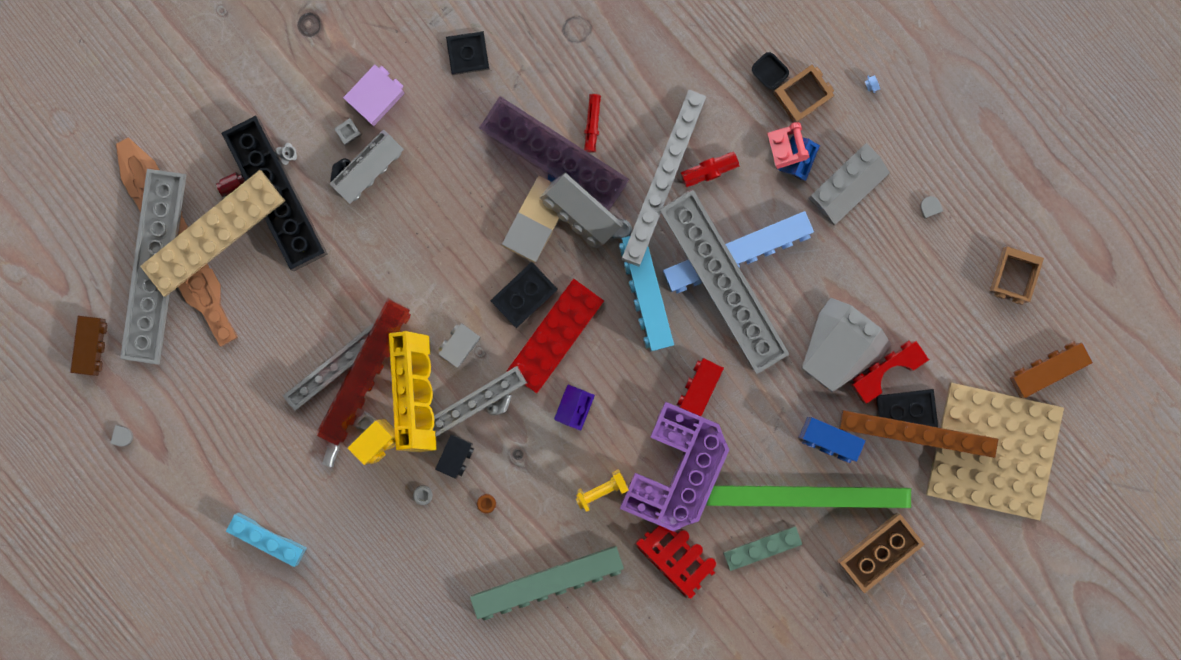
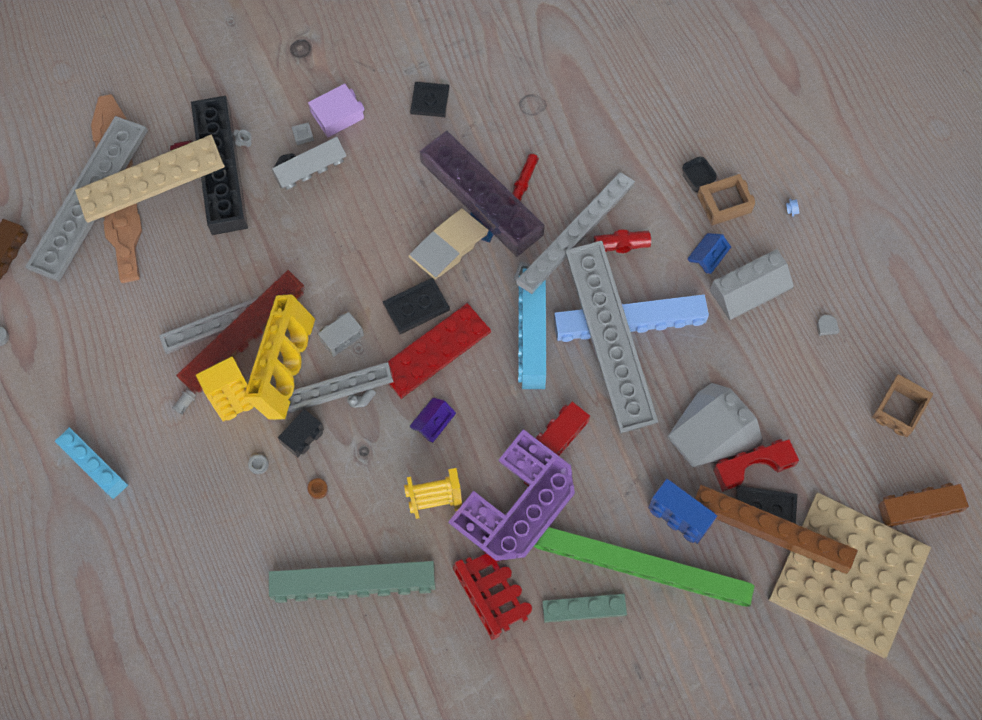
camera: 15 degrees right, 20 degrees down
(580, 211) = (491, 240): light grey slope -> none
(782, 147) = (695, 236): coral plate -> none
(880, 552) = (708, 642): medium nougat brick -> none

